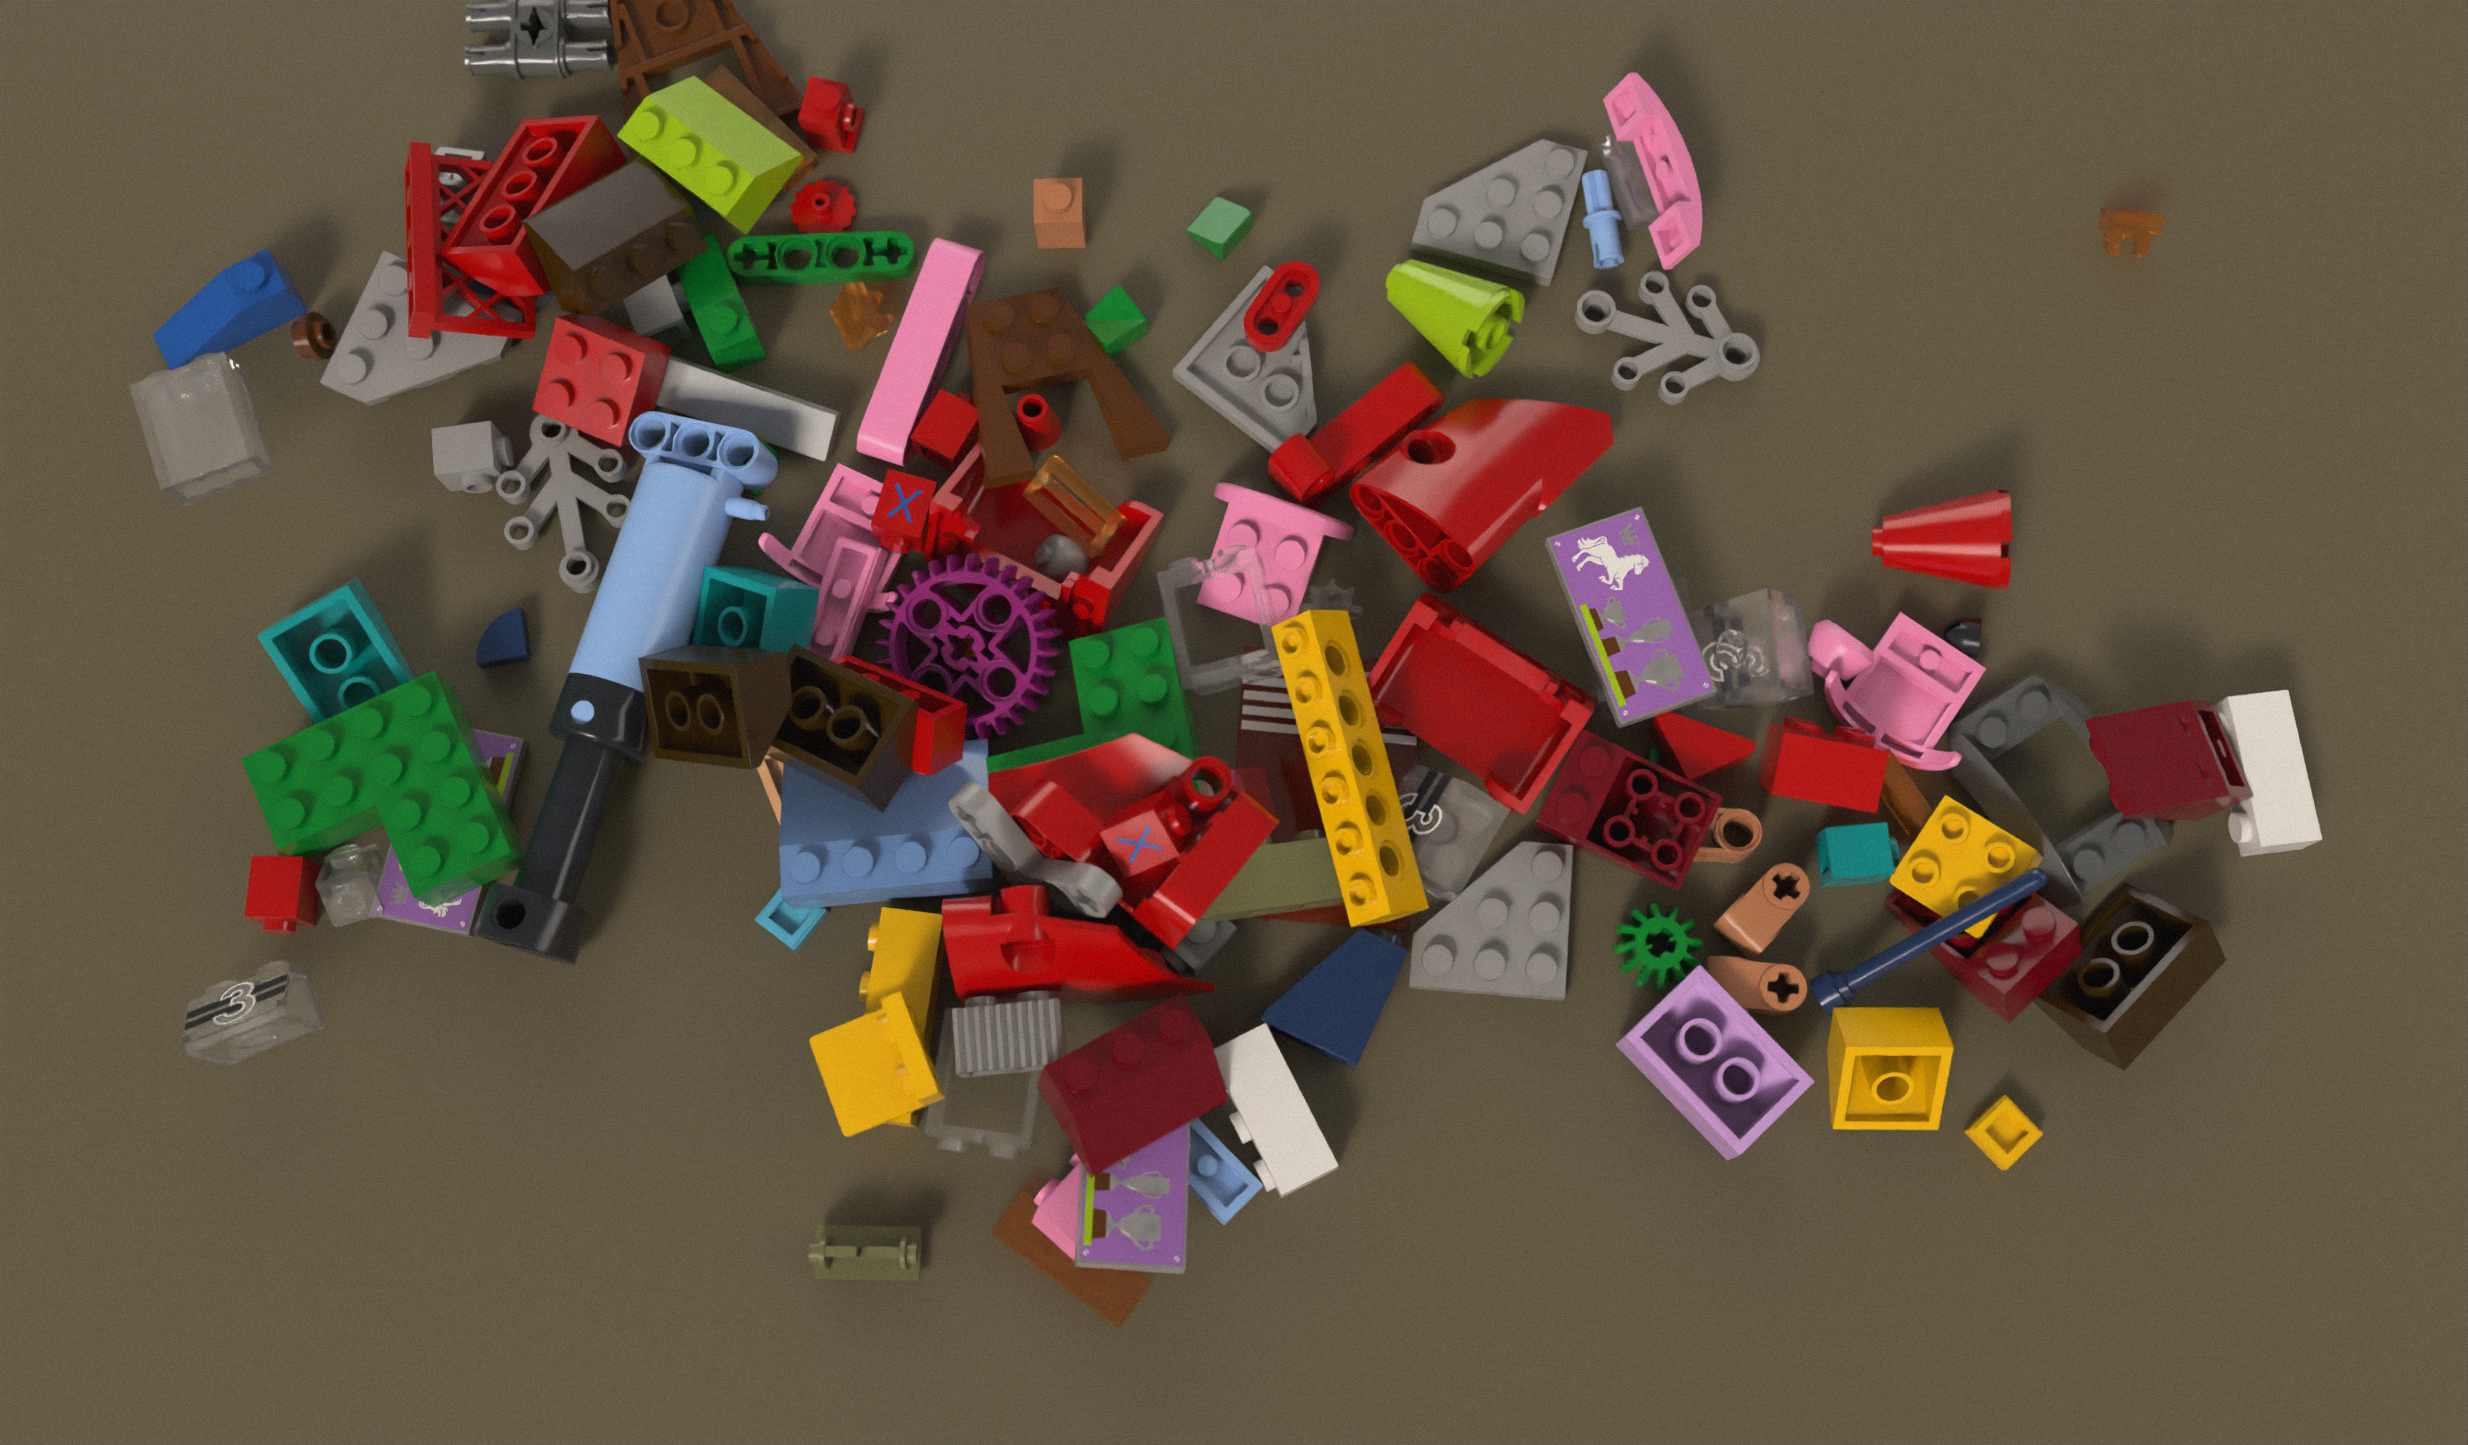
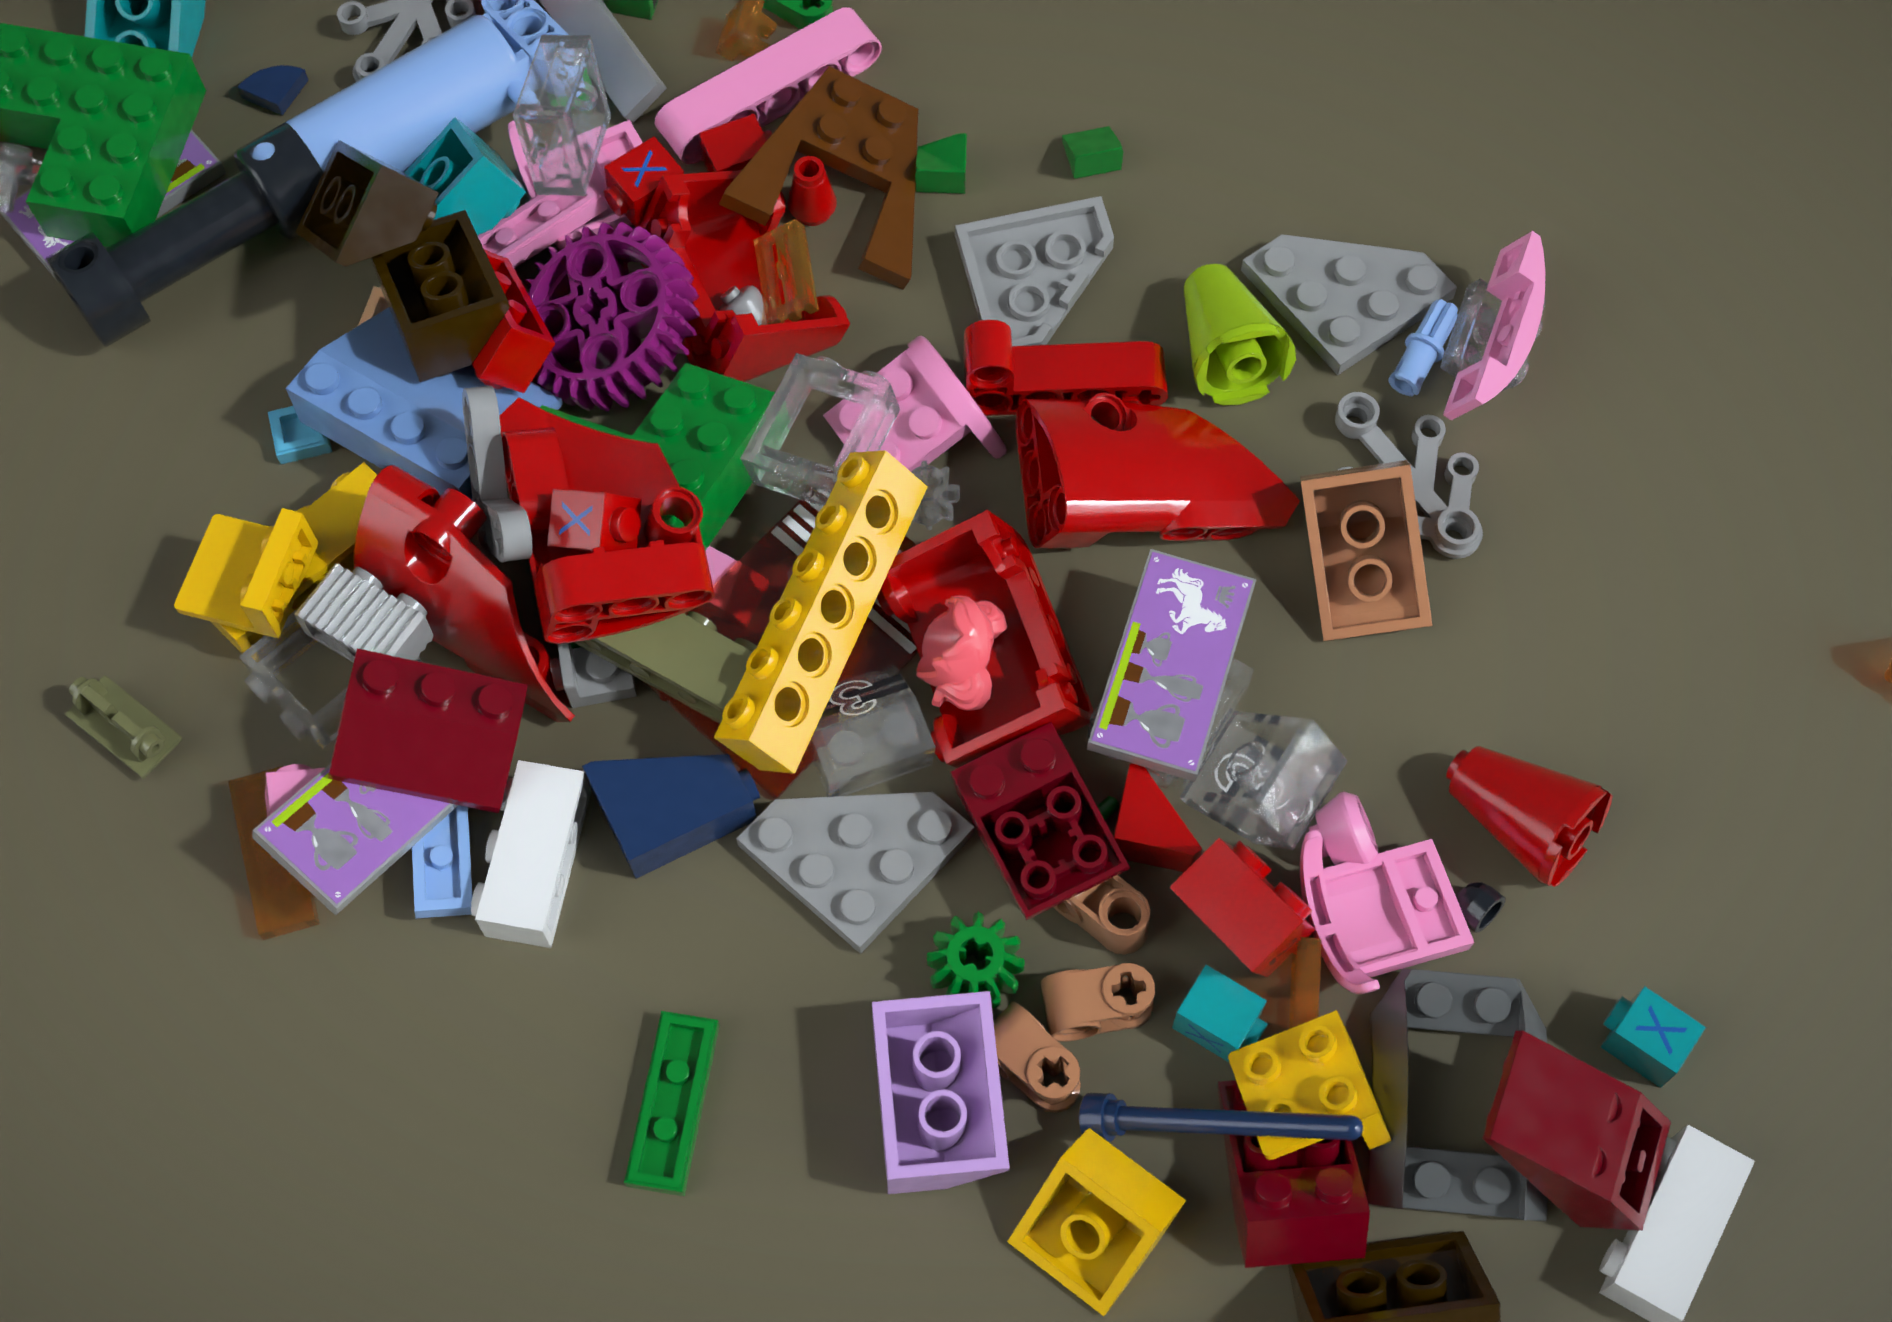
camera: 35 degrees right, 10 degrees down
(801, 503) = (565, 111): none -> clear window
(1059, 213) = (966, 53): nougat brick -> none
(1280, 309) = (1079, 229): red plate -> none
(1464, 720) = (959, 650): none -> coral hair
(1523, 1214) = (672, 1103): none -> green tile
(1688, 418) = (1366, 550): none -> nougat slope
(2151, 647) = (1650, 1035): none -> teal brick

